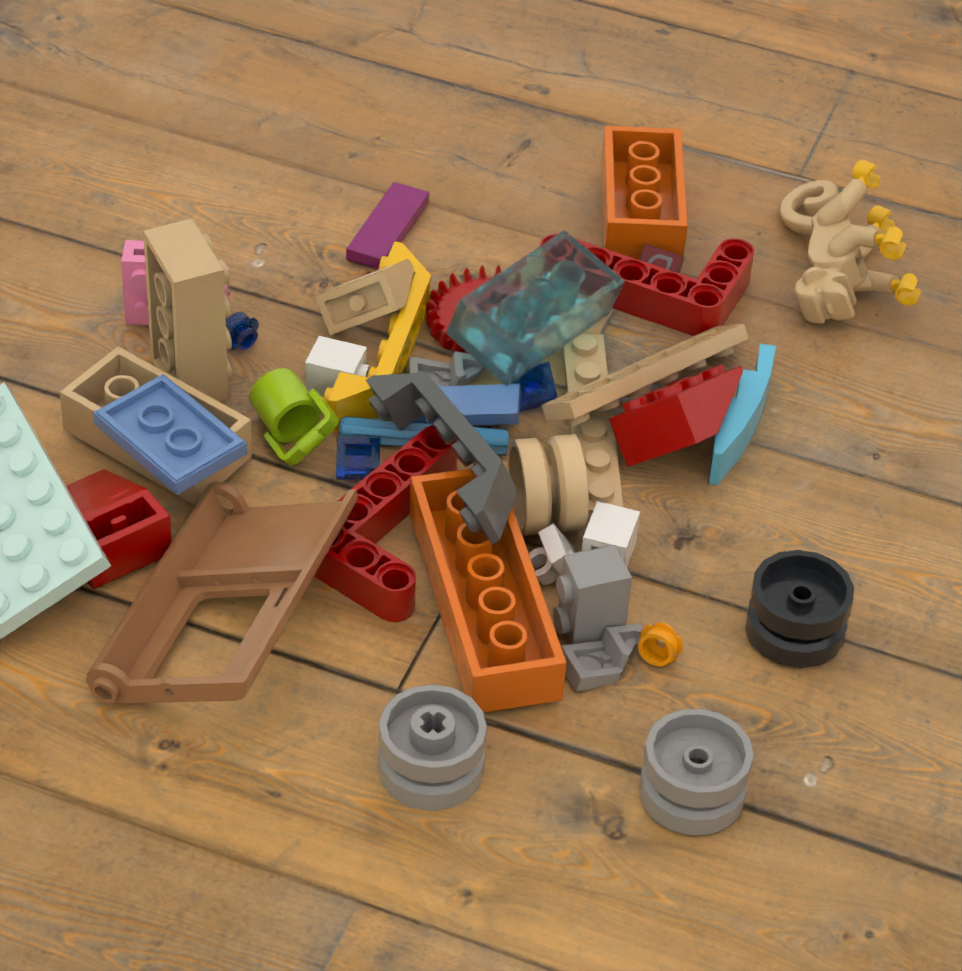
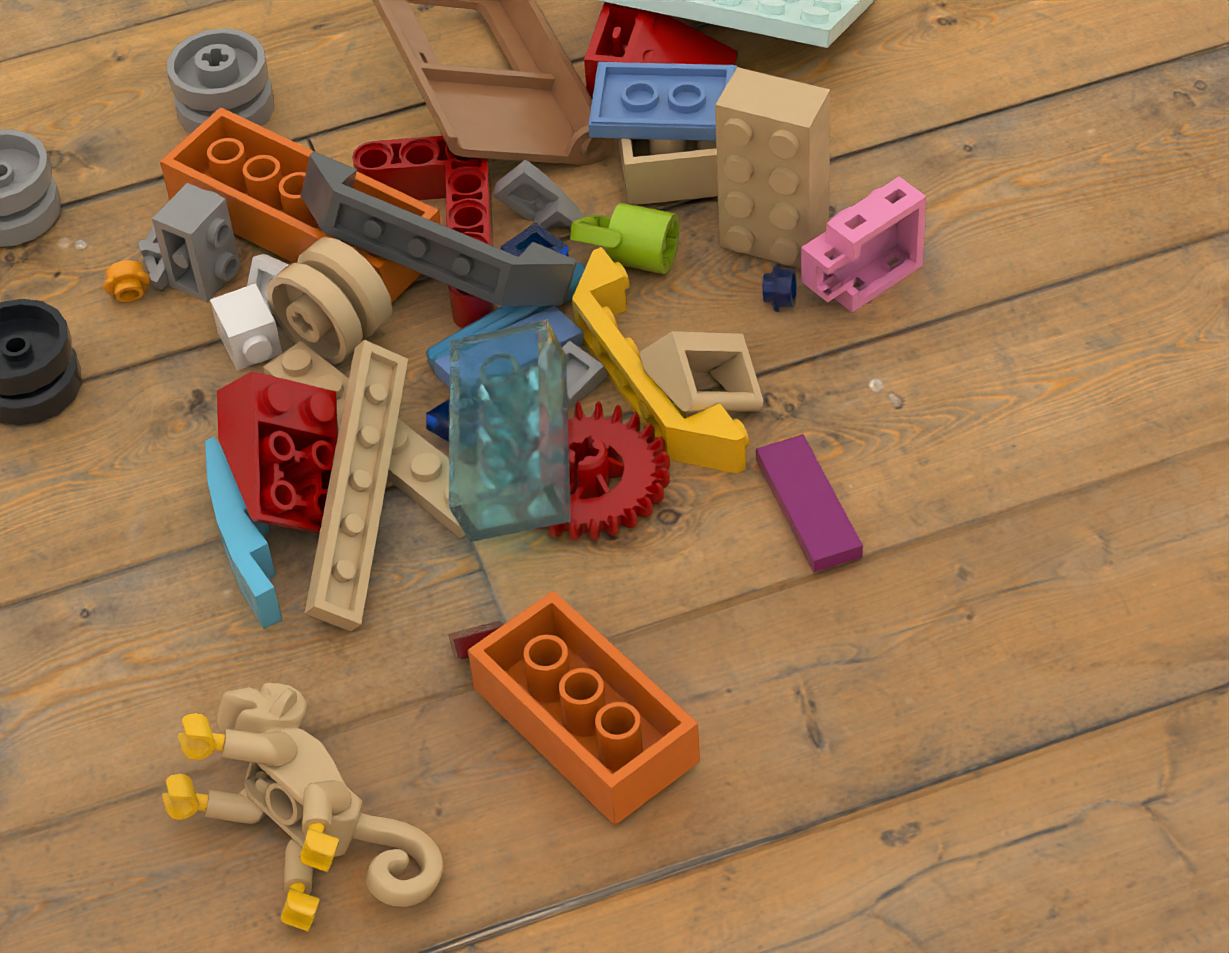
camera: 145 degrees right, 5 degrees up
(314, 482) = (536, 197): none -> light grey slope
(331, 357) = (648, 305): white brick -> none
(677, 299) = (425, 609): red beam -> none

